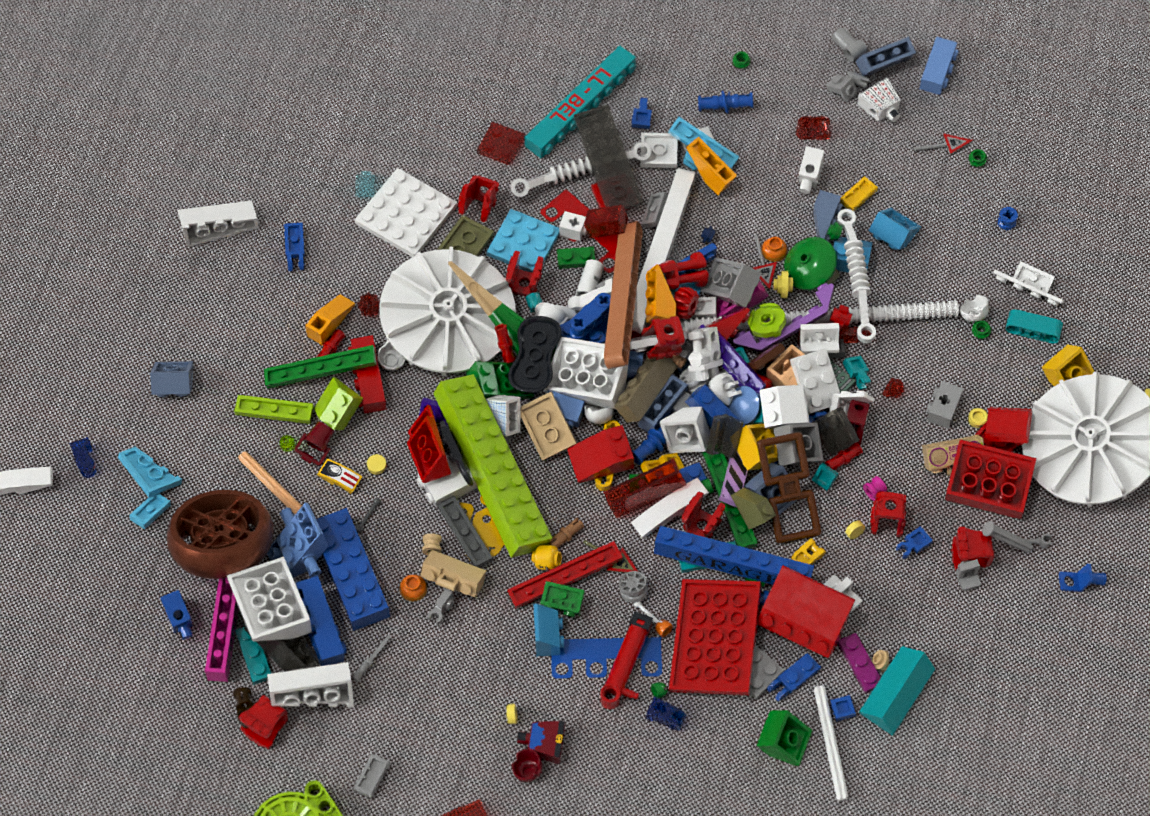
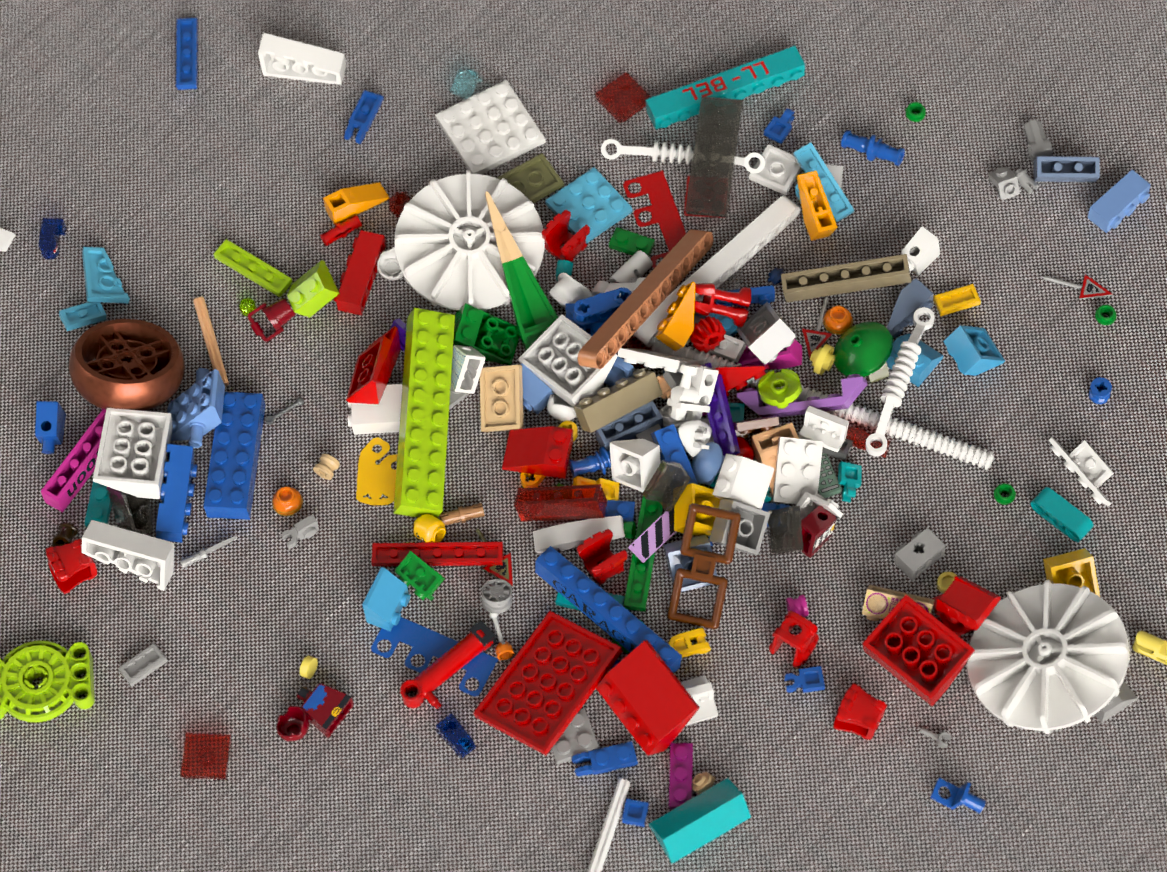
camera: 30 degrees right, 0 degrees up
(112, 255) = (187, 54): none -> blue plate
(172, 378) = (174, 196): sand blue slope -> none
(320, 366) = (316, 245): green plate -> none
(340, 475) = (278, 360): slope -> none
(376, 464) = (320, 364): light yellow tile -> none
(453, 574) = (328, 504): tan piece -> none
(455, 454) = (393, 386): black plate -> none
(465, 532) = (364, 469): dark grey plate -> none
(473, 191) = (565, 133): red piece -> none
(504, 343) = (504, 297): red pin -> none
(533, 366) = (535, 309): black plate -> none
(572, 226) = (644, 210): white brick -> none
(606, 221) = (677, 219): clear red brick -> none
(654, 209) = (735, 227): light grey plate -> none
(658, 689) = (463, 710): green hinge -> none
(667, 344) = (654, 367): red piece -> none
(753, 507) = (657, 569): olive slope -> none
(767, 212) = (846, 278): none -> dark tan brick
(784, 737) = (560, 814): green slope -> none
(814, 128) = (950, 213): clear red piece -> none
(825, 476) = (752, 572): teal plate -> none
(834, 231) = (904, 326): green plate -> none
(841, 315) = (858, 416): red gear -> none
(844, 456) = (784, 561): red pin -> none
(855, 529) = (752, 639): light yellow tile -> none
(880, 101) = (1035, 213): white torso -> none
(894, 388) = (877, 515): clear red plate -> none
(968, 574) = (841, 738): light grey bracket -> none
(976, 309) = (1008, 470): white hair -> none
(1007, 537) = (900, 717): light grey axle -> none

